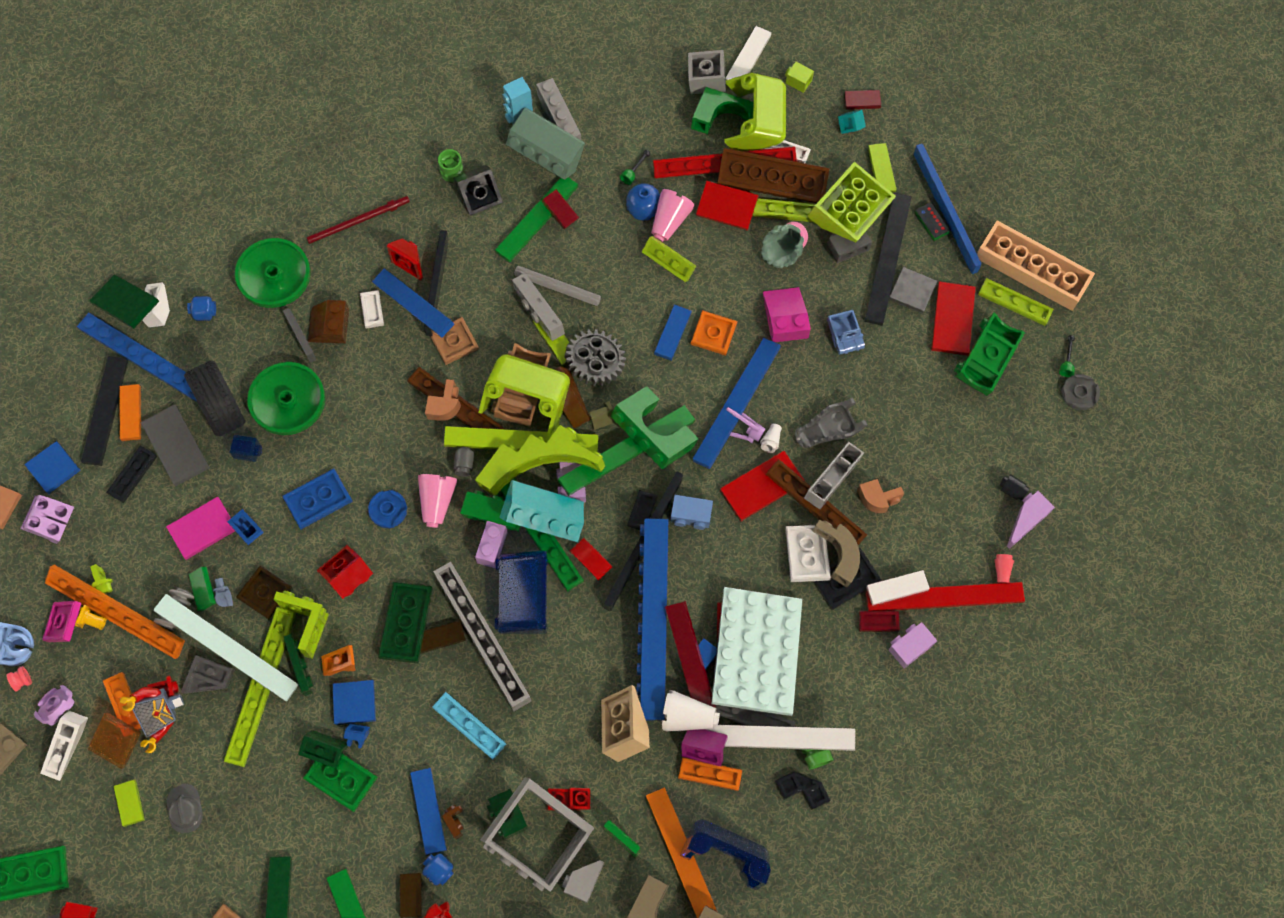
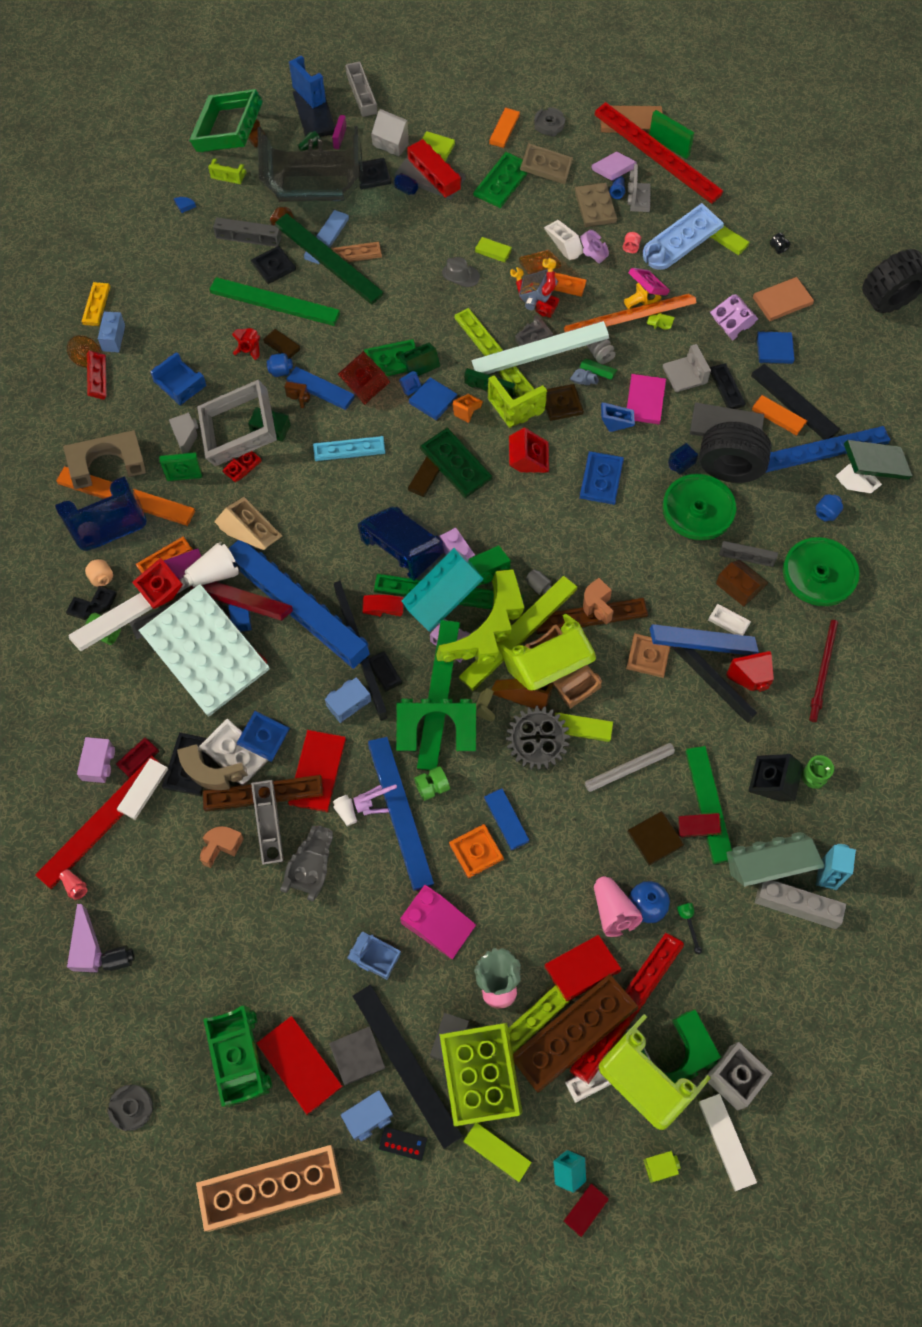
camera: 135 degrees right, 5 degrees down
(142, 514) = (688, 371): none -> light grey bracket
(387, 509) = (556, 514): blue tile -> none
(390, 772) = (364, 378): none -> clear red brick
(435, 497) = (529, 543): bright pink cone -> none
(482, 636) = (397, 493): light grey brick -> none
(539, 308) = (629, 730): light grey piece -> none
(594, 232) = (655, 838): none -> dark brown tile
(668, 259) = (574, 872): lime plate -> none
(691, 393) = (439, 783): none -> bright green wheel
(743, 737) = (158, 584): none -> red slope
(775, 808) = (99, 572): none -> light nougat head
(777, 543) = (263, 736): none -> blue tile
(940, 251) = (367, 1116): none -> medium blue brick
(947, 209) = (402, 1169): blue tile -> none
(1015, 301) = (259, 1139): lime tile -> none
(1067, 369) = (159, 1118): green hinge -> none

